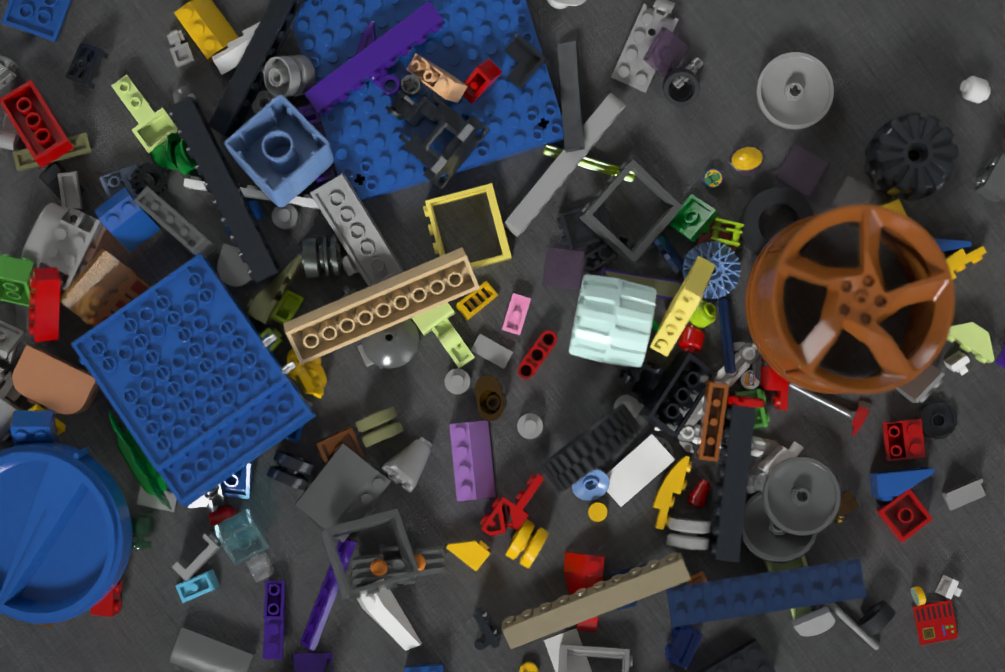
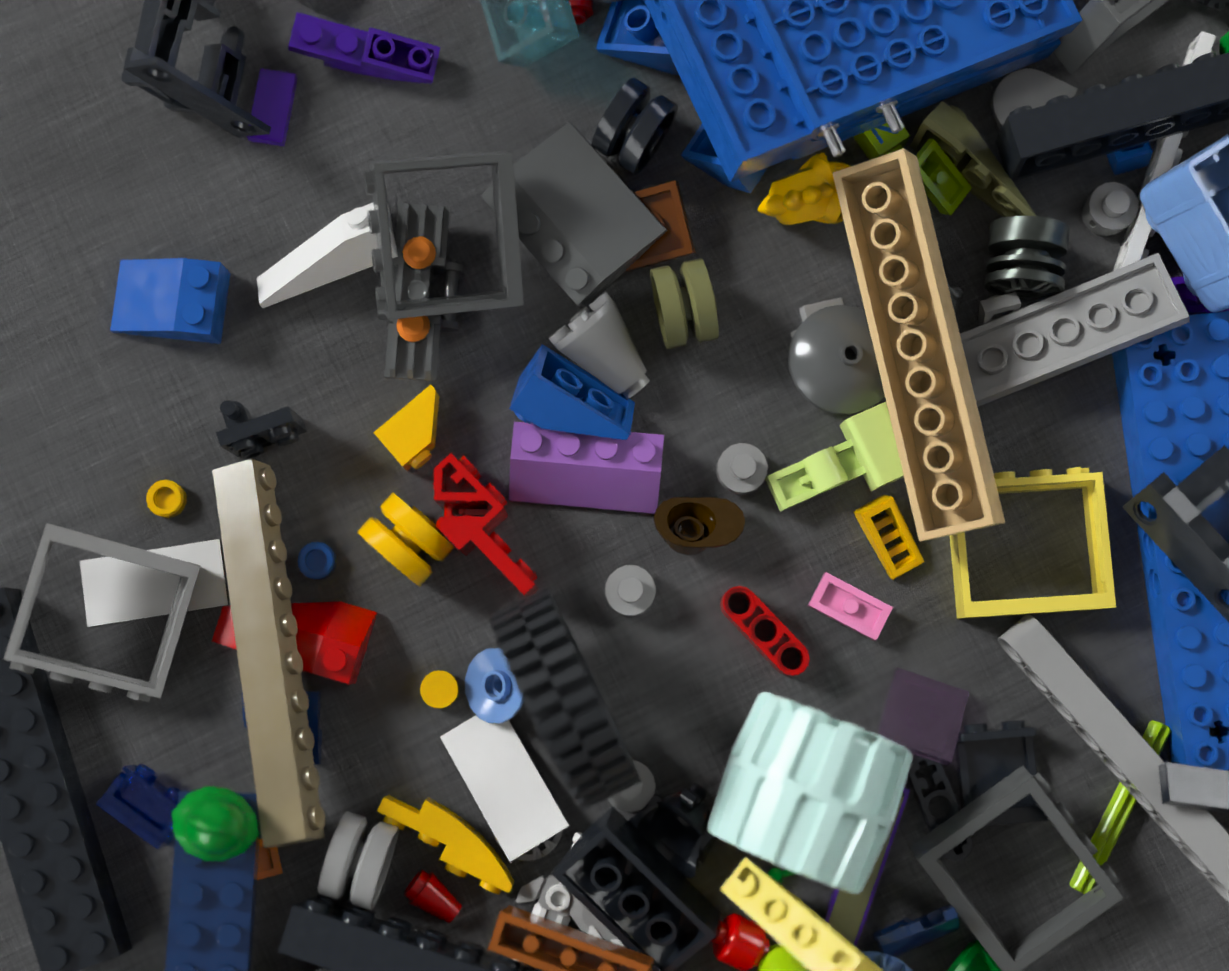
camera: 100 degrees right, 5 degrees down
(260, 567) = (467, 43): clear brick -> none
(326, 597) = (382, 147): dark purple tile -> none
(440, 475) = (569, 399): none -> blue slope
(491, 351) = (786, 546): light grey tile -> none
(545, 587) = (317, 560): none -> blue tile
(684, 605) = (214, 824): none -> green piece

